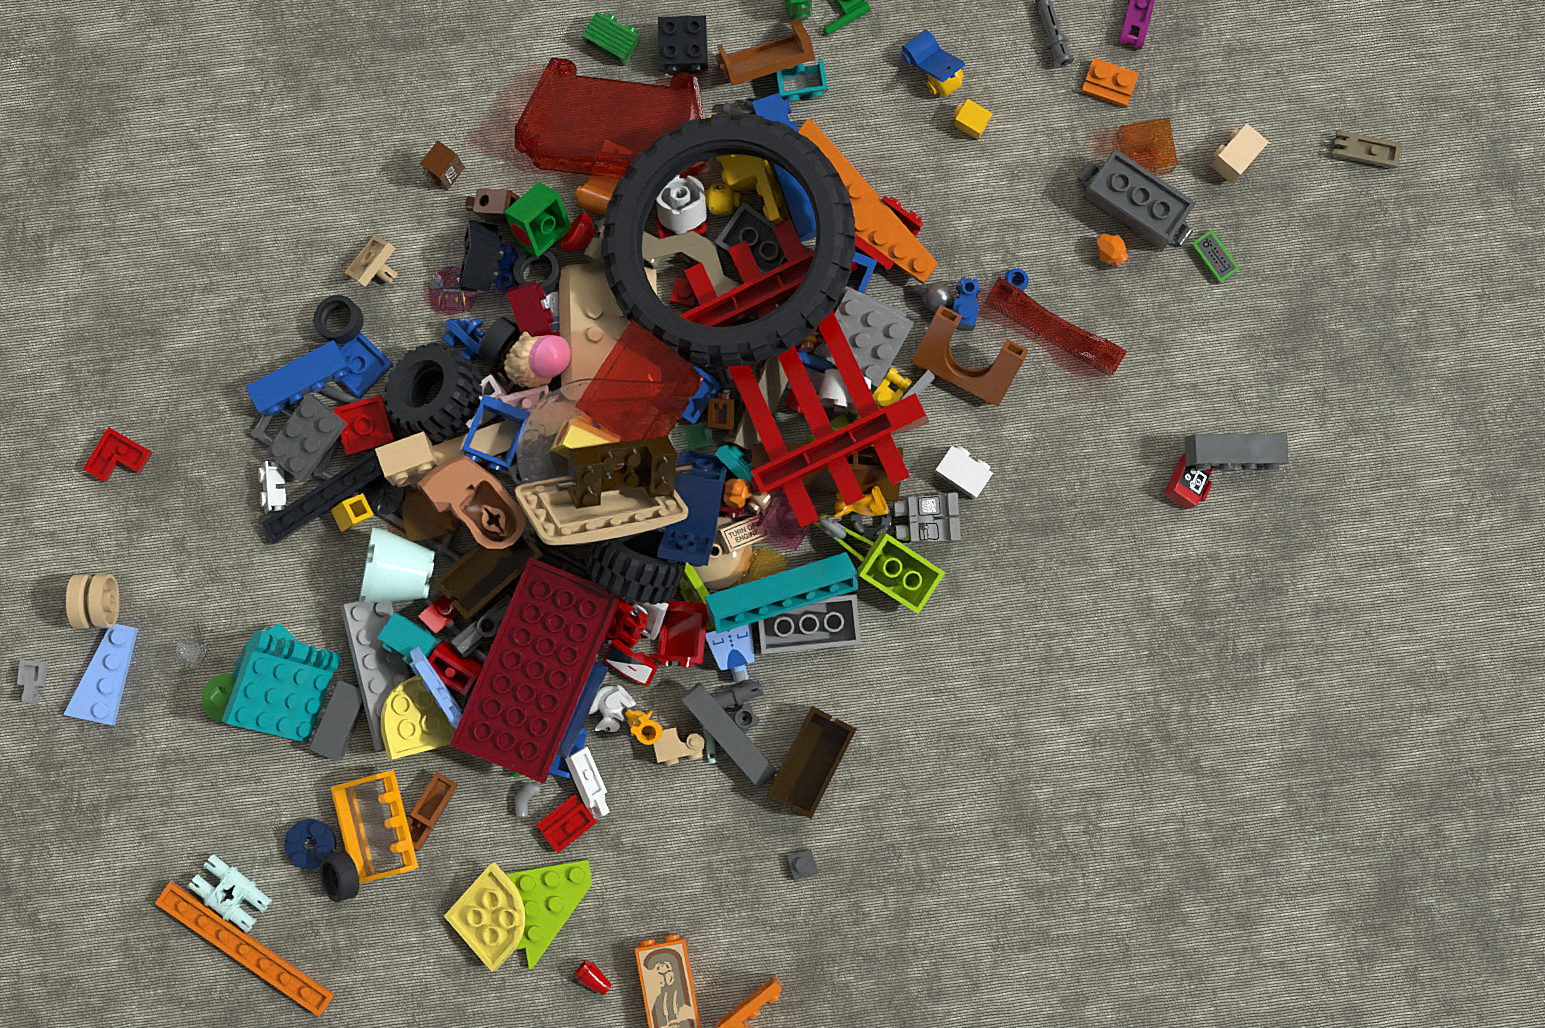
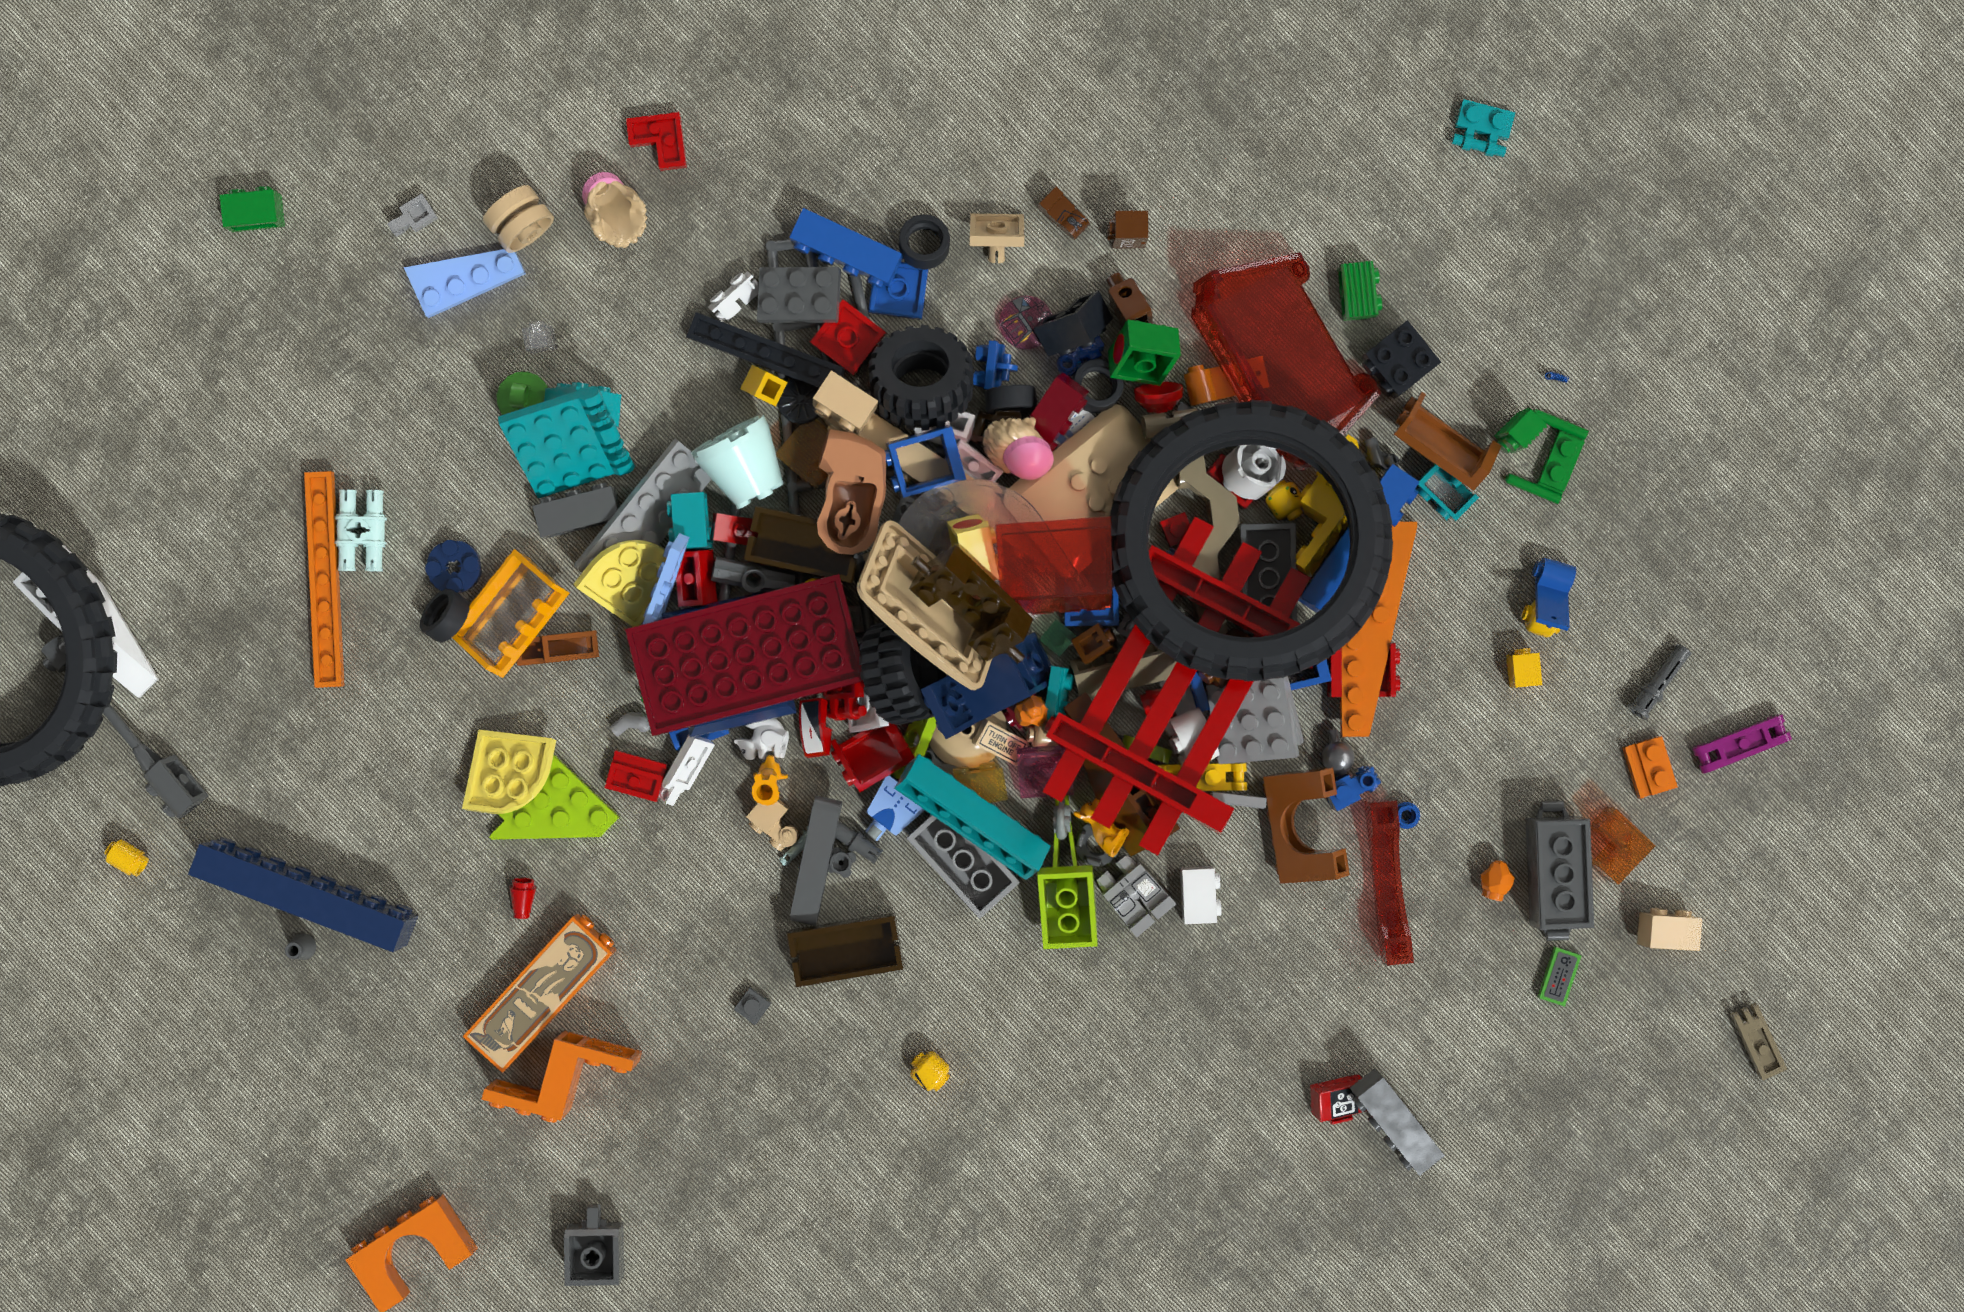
camera: 55 degrees right, 5 degrees up
(141, 527) = (613, 210): none -> tan hair
(395, 205) = (1063, 213): none -> reddish brown leg
(948, 767) = (929, 1071): none -> yellow head

